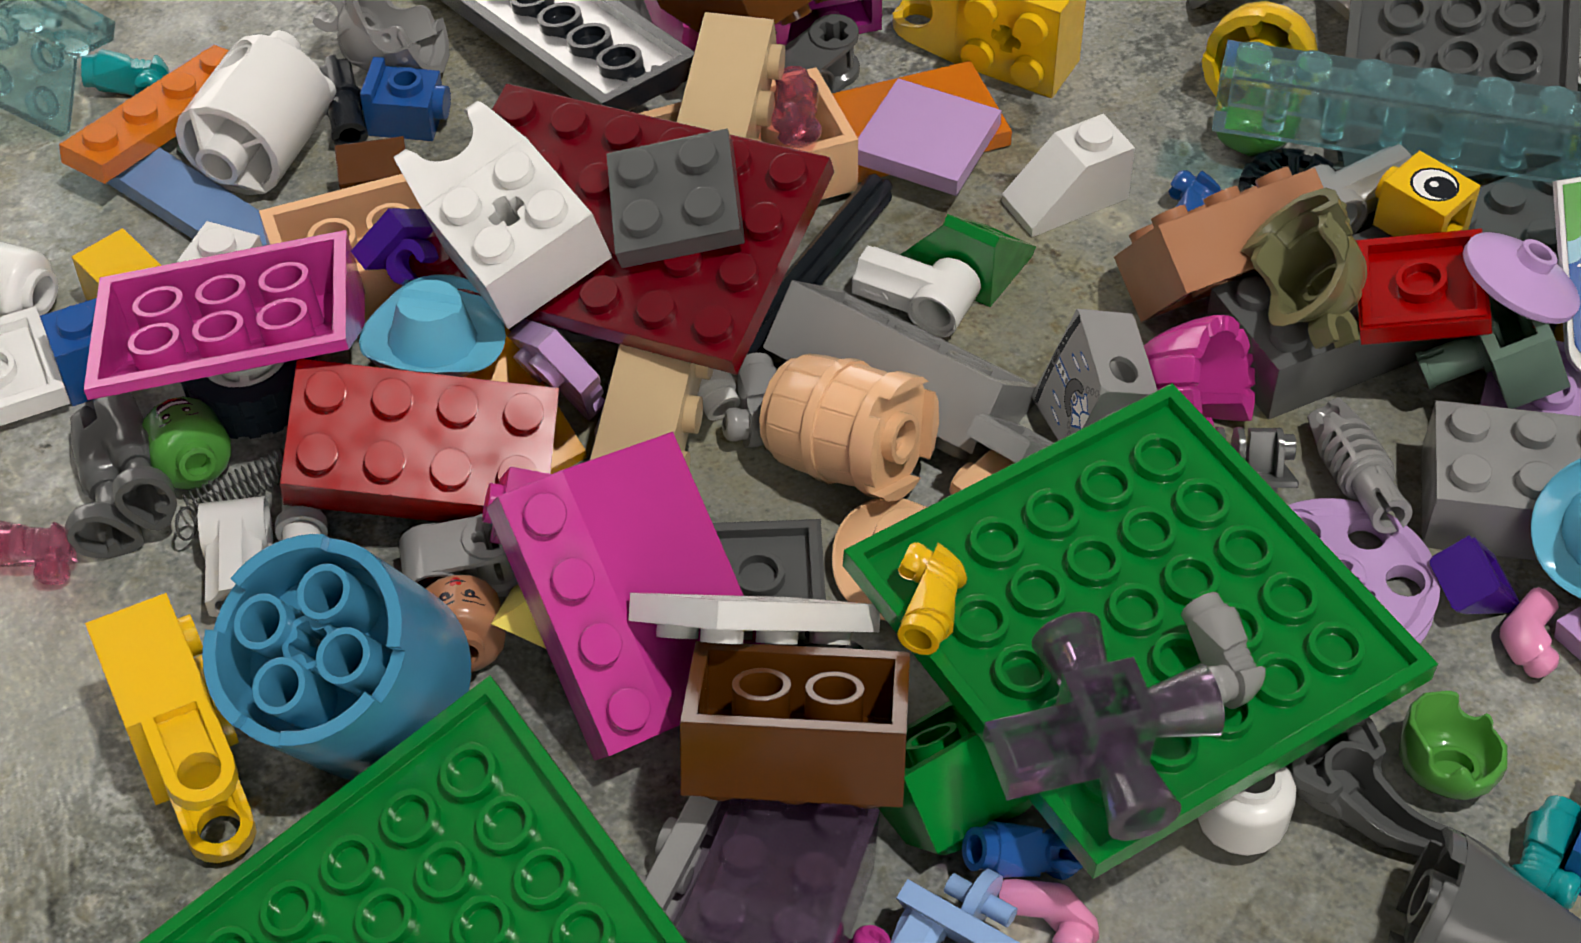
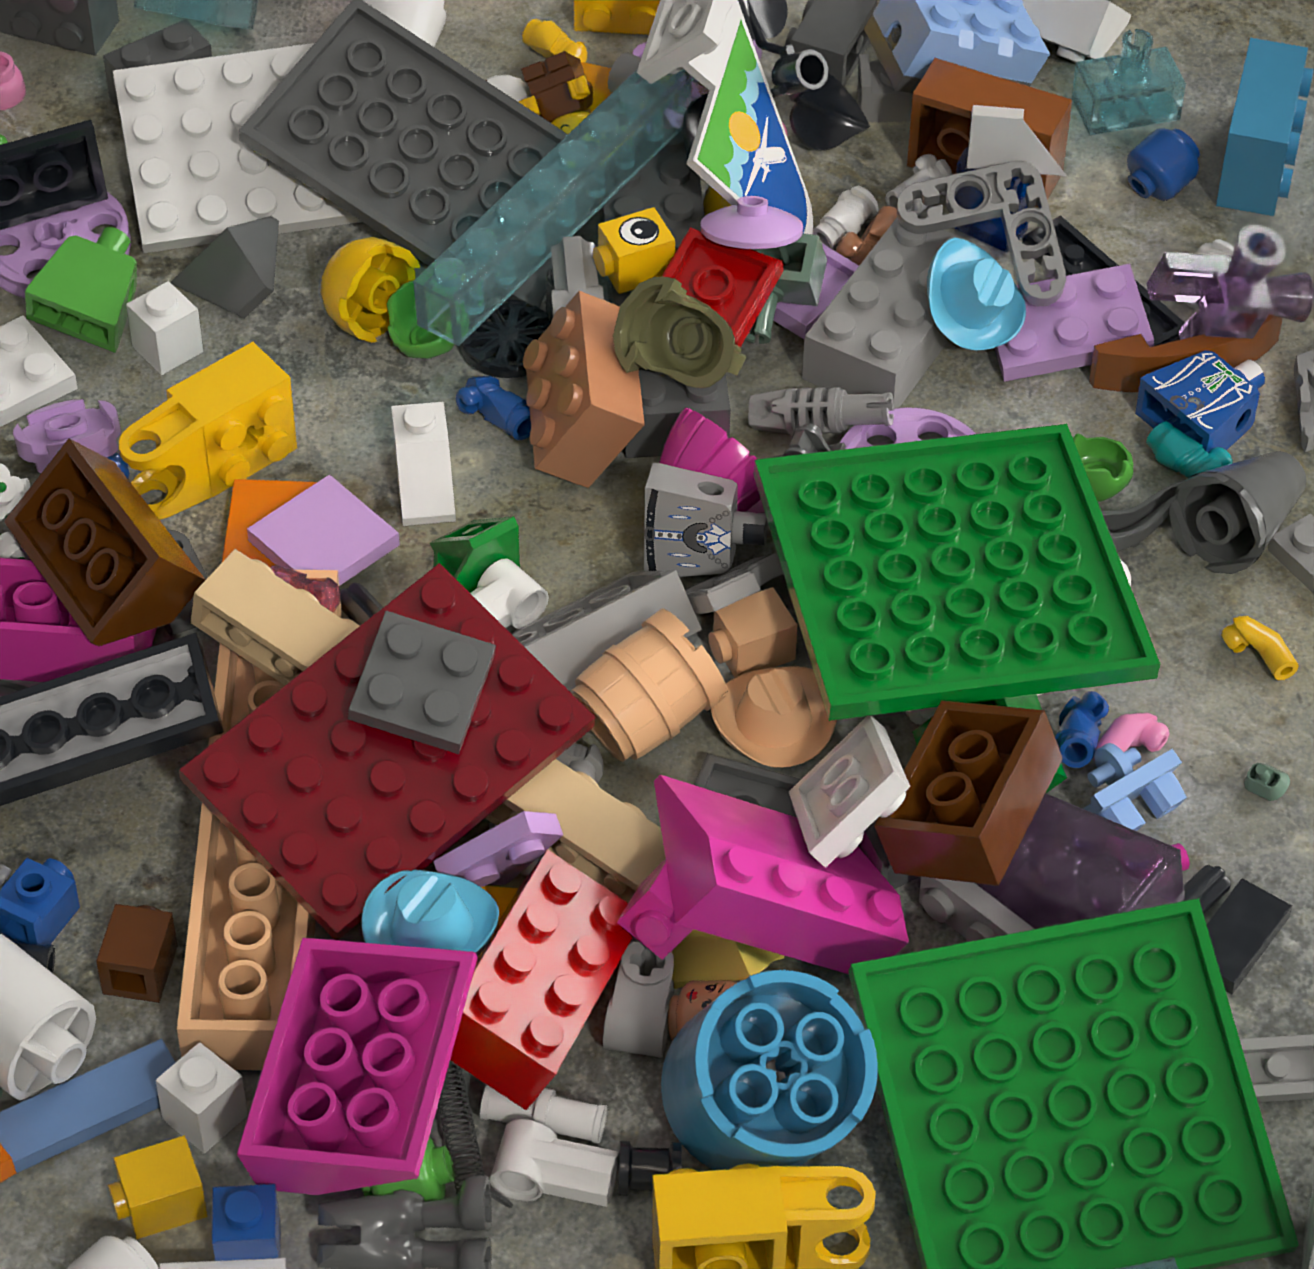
camera: 70 degrees left, 0 degrees up
(392, 242) = (322, 909): dark purple tile -> none
(506, 217) = (351, 811): white brick -> none
(932, 607) = (911, 664): yellow arm -> none
(1102, 727) = (1075, 604): clear purple brick -> none
(1223, 648) = (1026, 524): light grey arm -> none
(1473, 579) = (951, 394): dark purple slope -> none
(1526, 636) = (1005, 392): bright pink arm -> none

